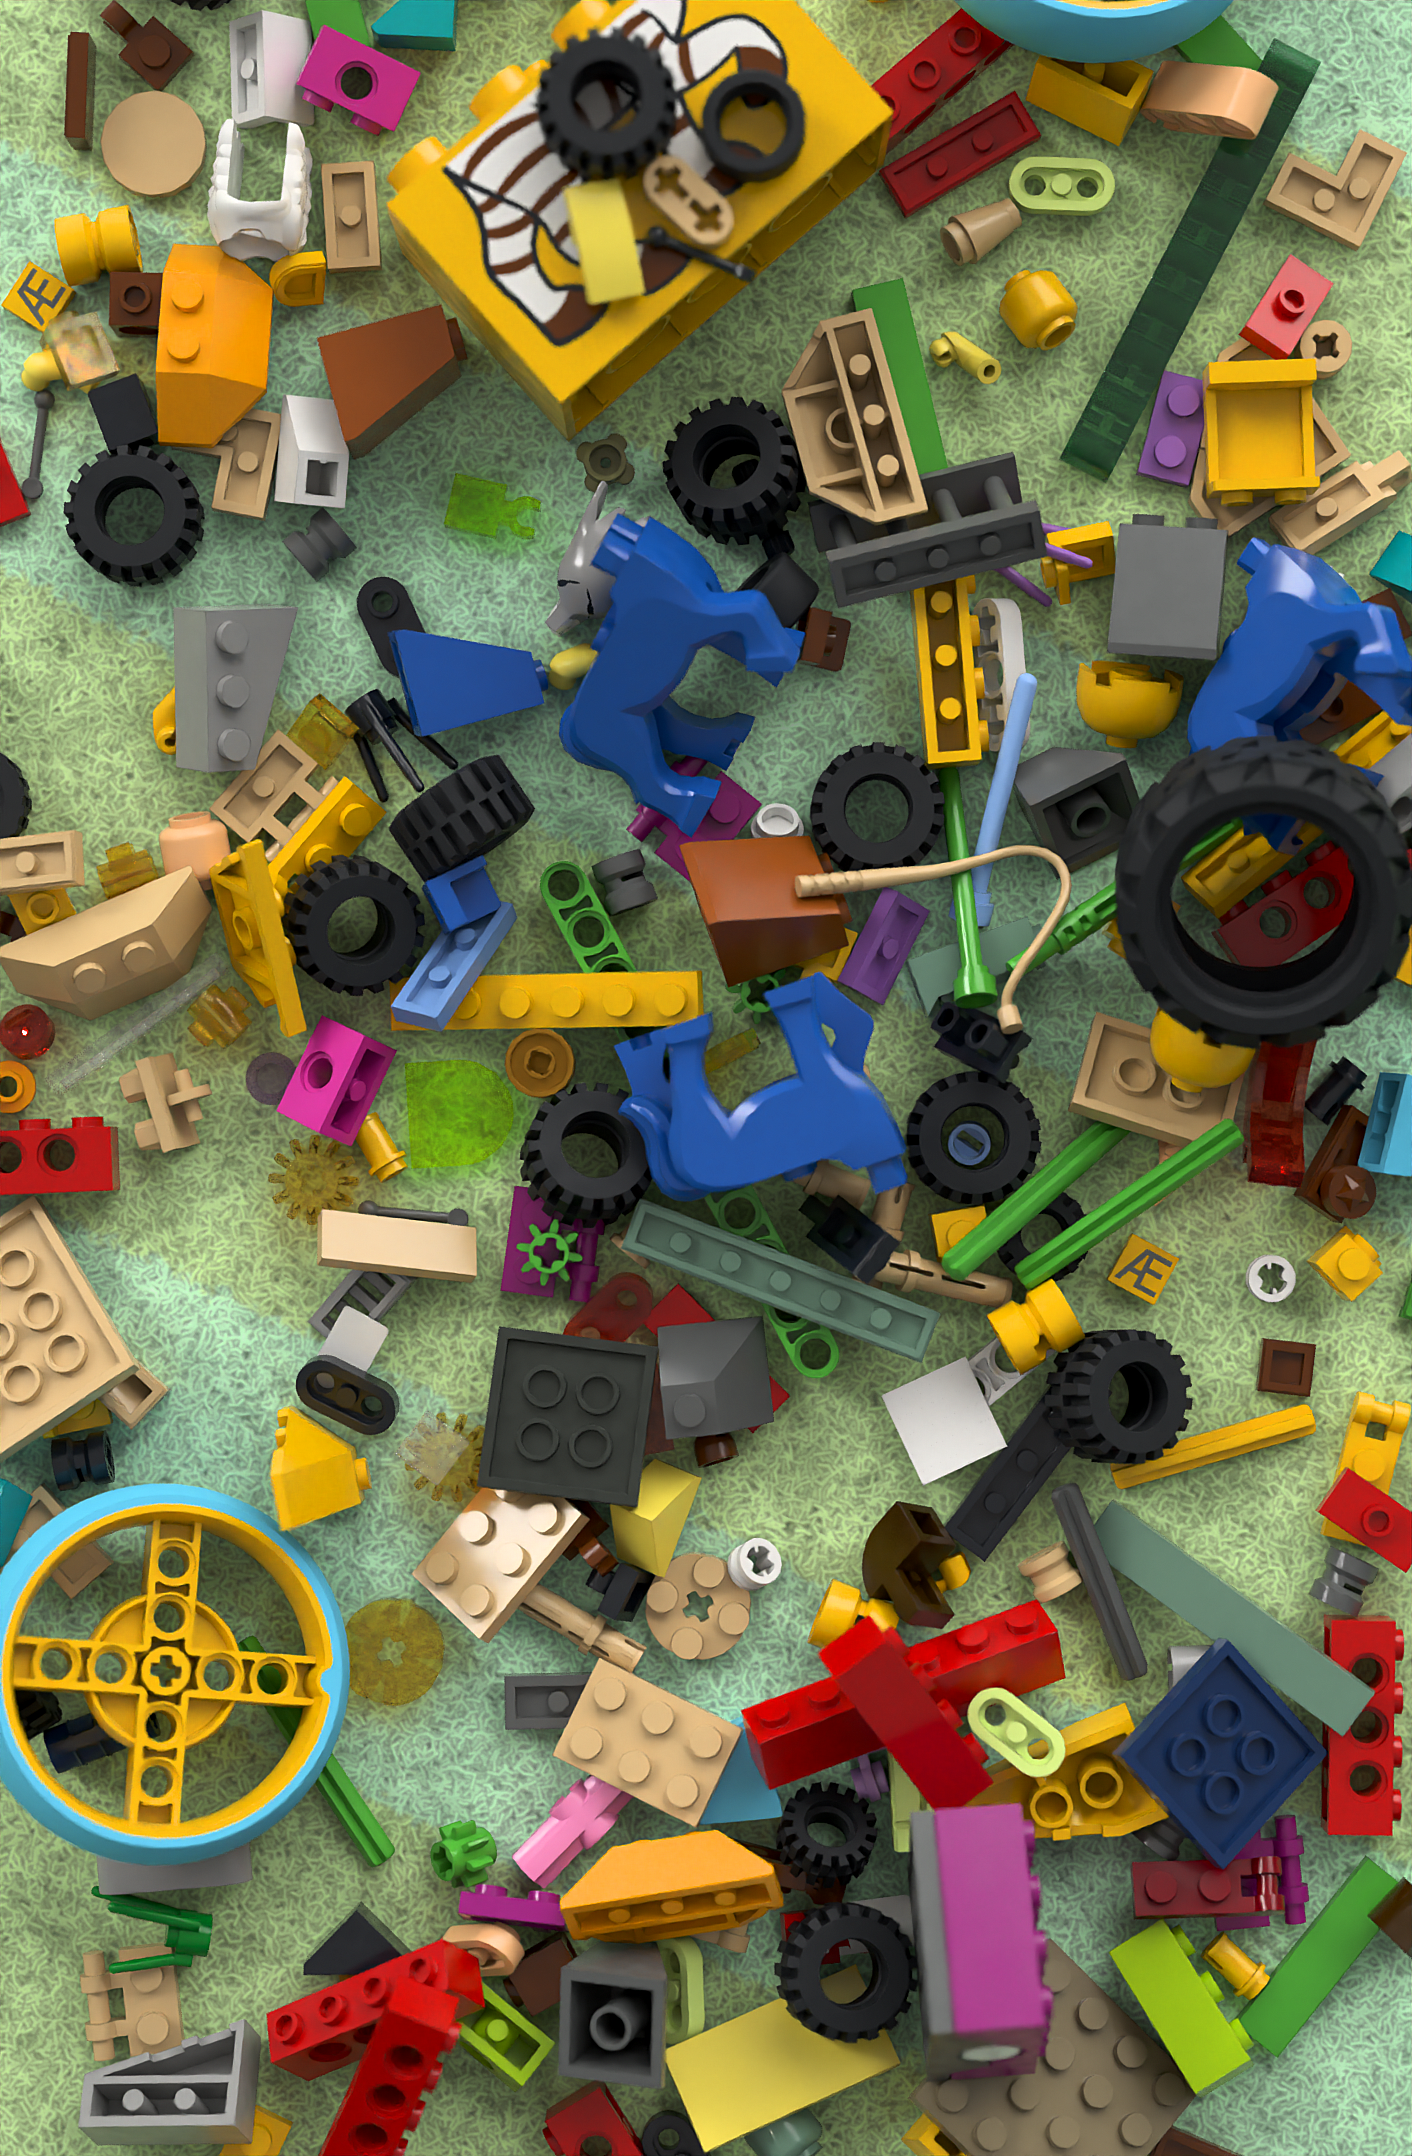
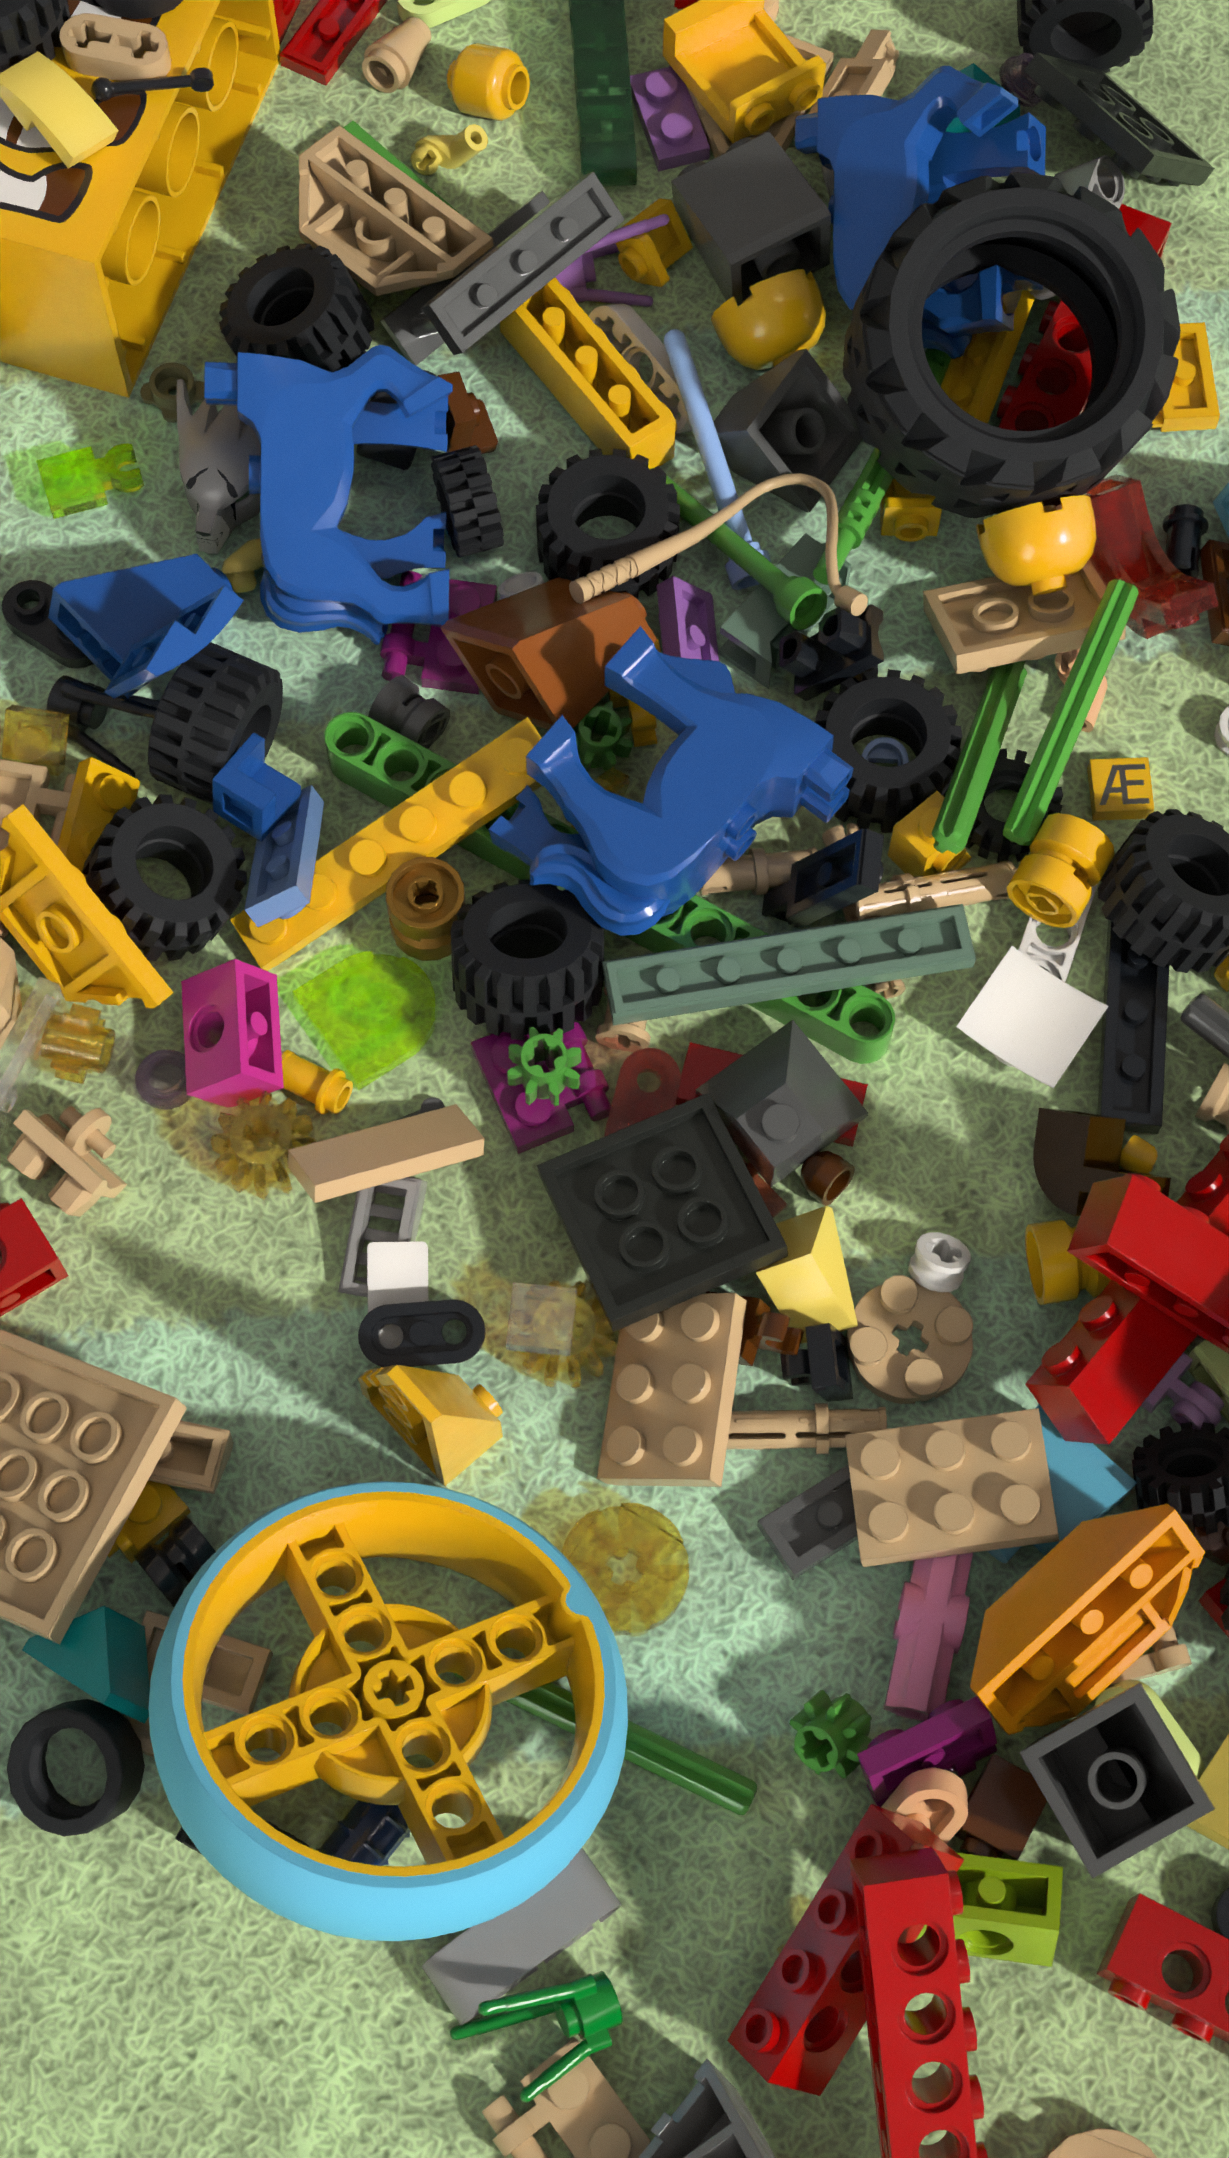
camera: 30 degrees left, 20 degrees down
(355, 1946) = (773, 1909): black slope -> none
(458, 756) = (175, 642): none -> blue slope
(776, 726) = (468, 500): none -> black tyre

